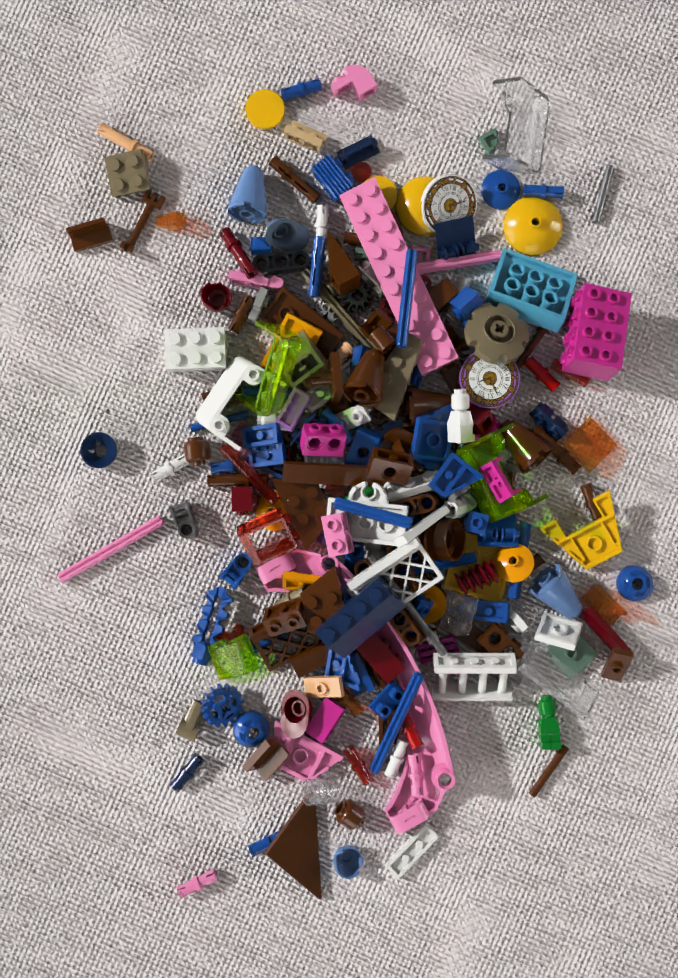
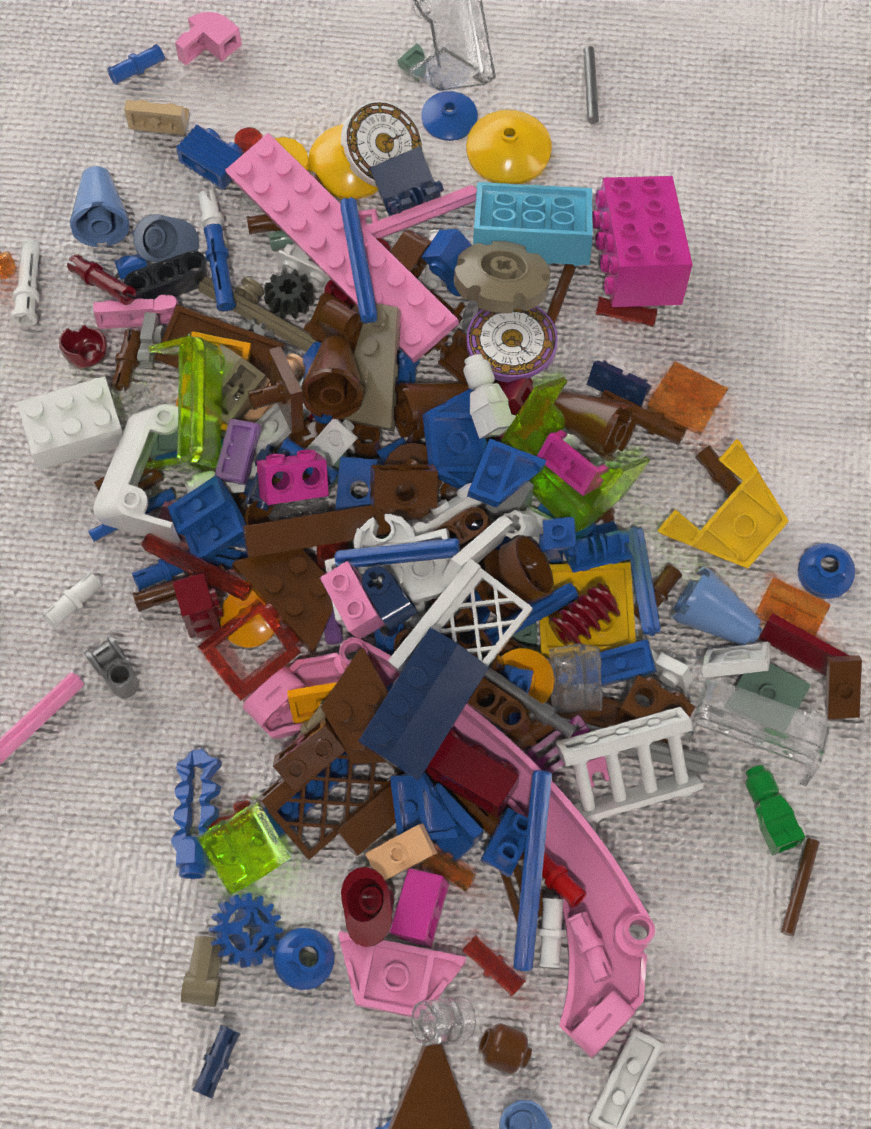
camera: 15 degrees left, 20 degrees down
(188, 247) = (26, 294): none -> white pin
(197, 450) = (107, 560): reddish brown head -> none
(235, 572) = (212, 722): blue piece -> none
(265, 109) = (92, 101): yellow tile -> none
(267, 758) = (341, 993): panel -> none
(294, 179) = (128, 160): reddish brown pin -> none
(342, 272) = (258, 260): reddish brown slope -> none
(358, 152) = (239, 116): dark blue hinge -> none
(359, 542) = (391, 600): none -> dark blue piece
(514, 572) = (642, 589): light orange dish -> none
(541, 373) = (586, 324): red pin -> none
(543, 191) = (508, 100): blue pin -> none

